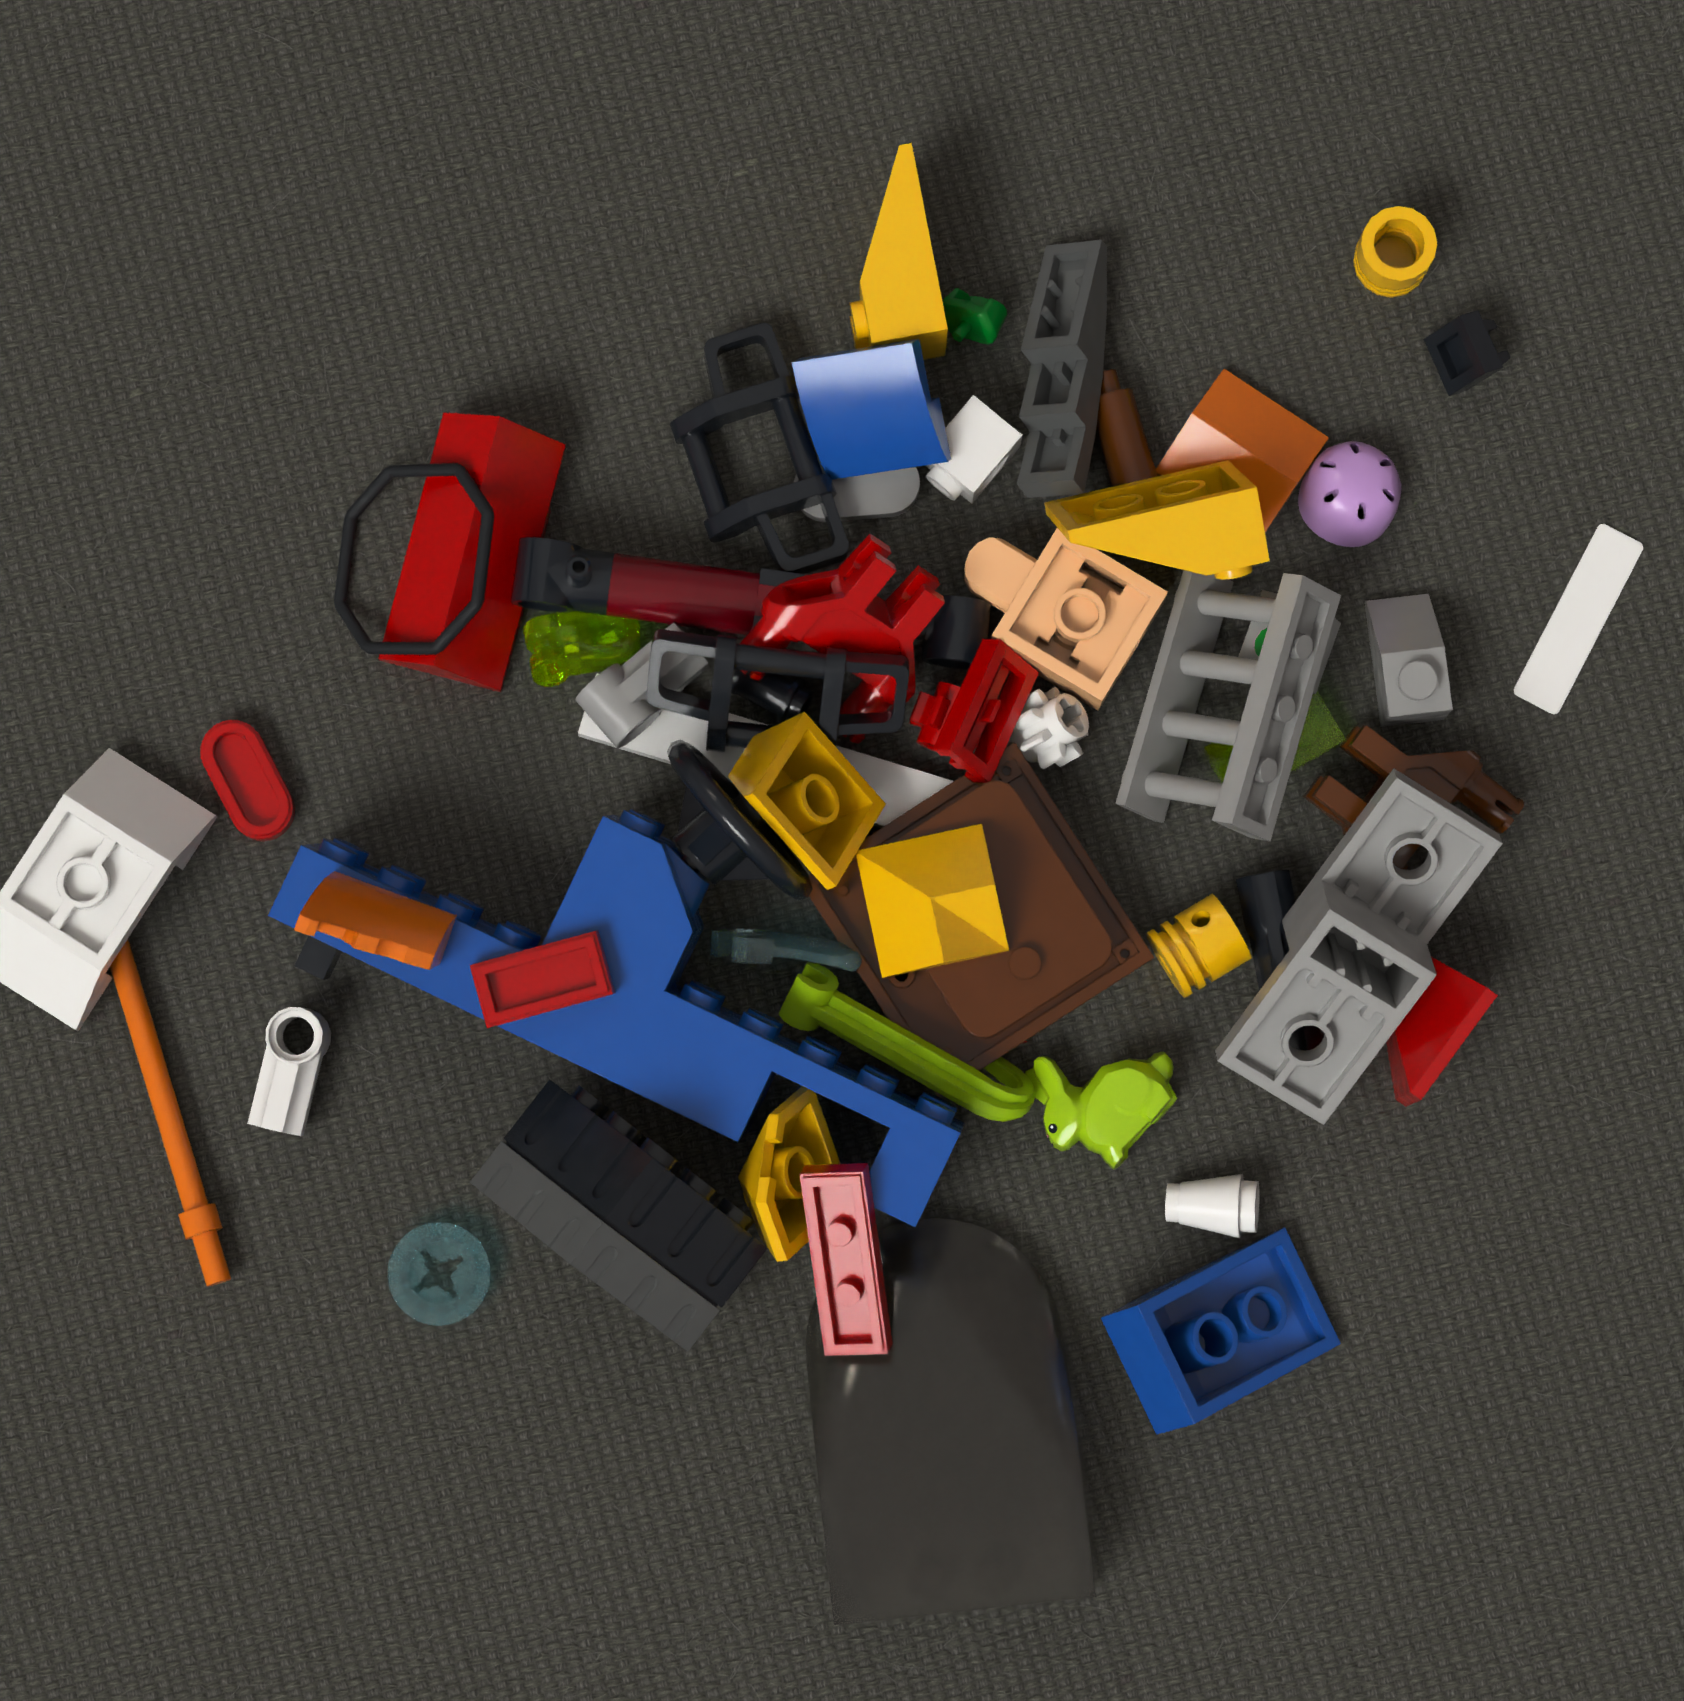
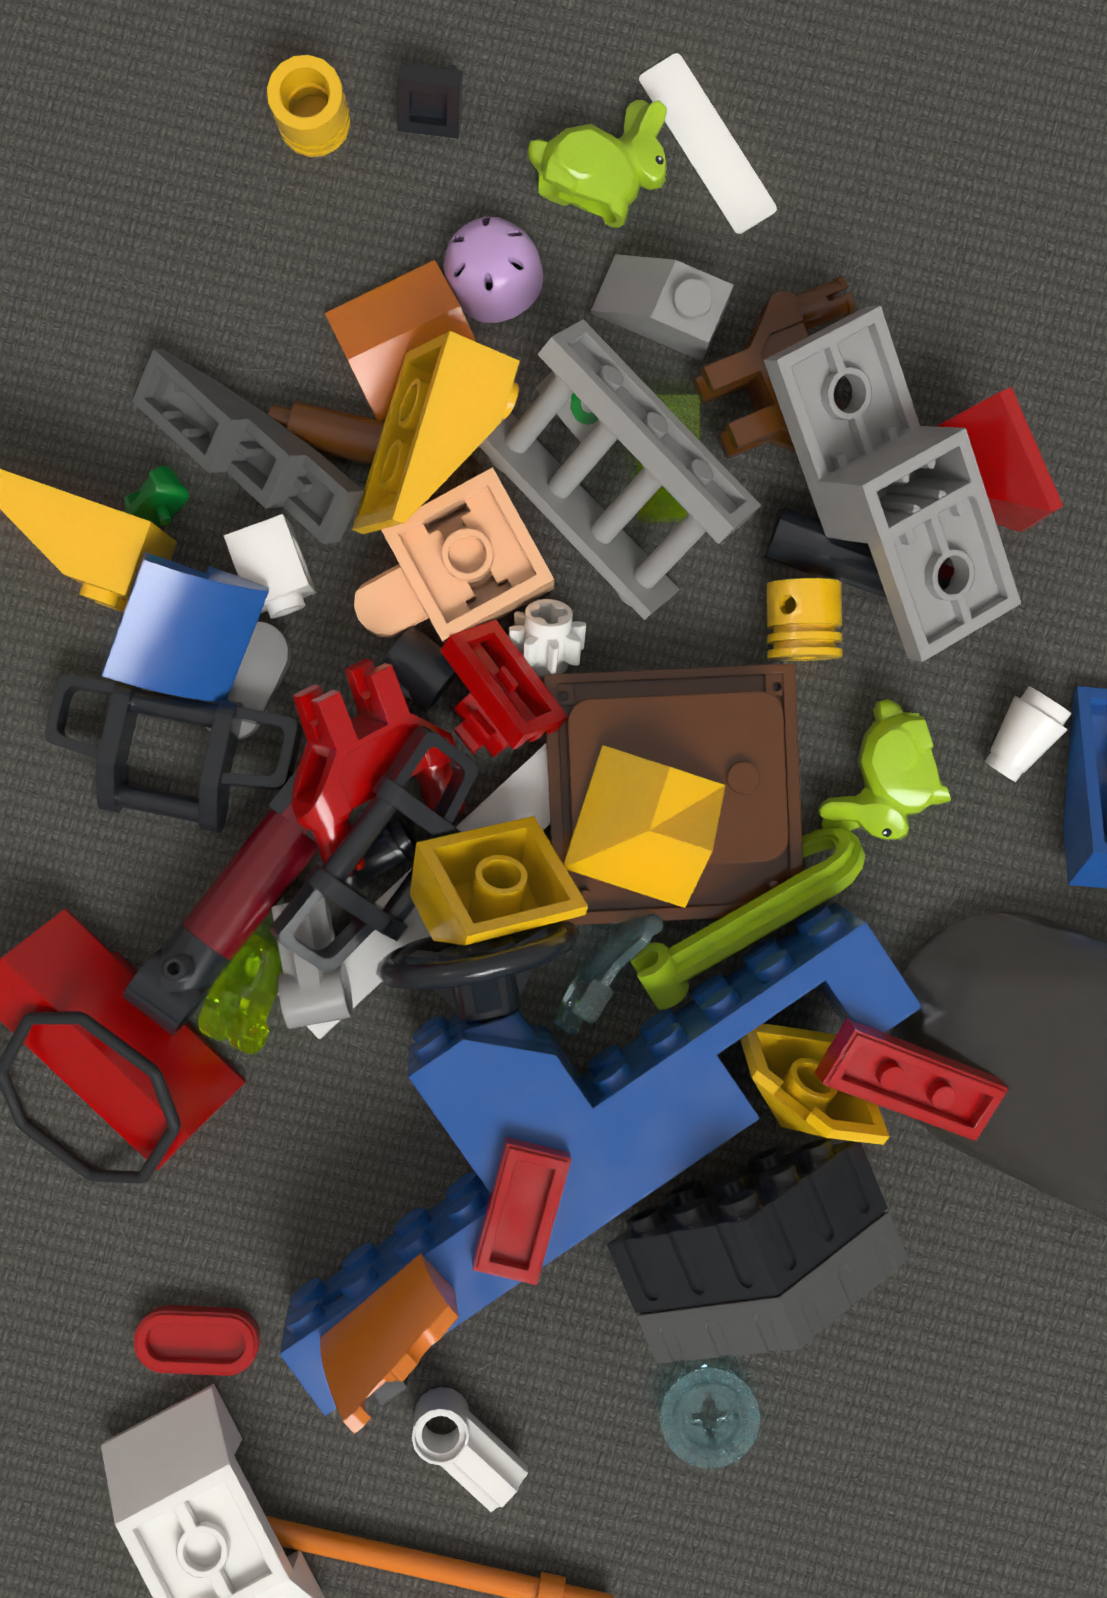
camera: 60 degrees left, 5 degrees up
(1493, 537) = (599, 170): none -> lime animal

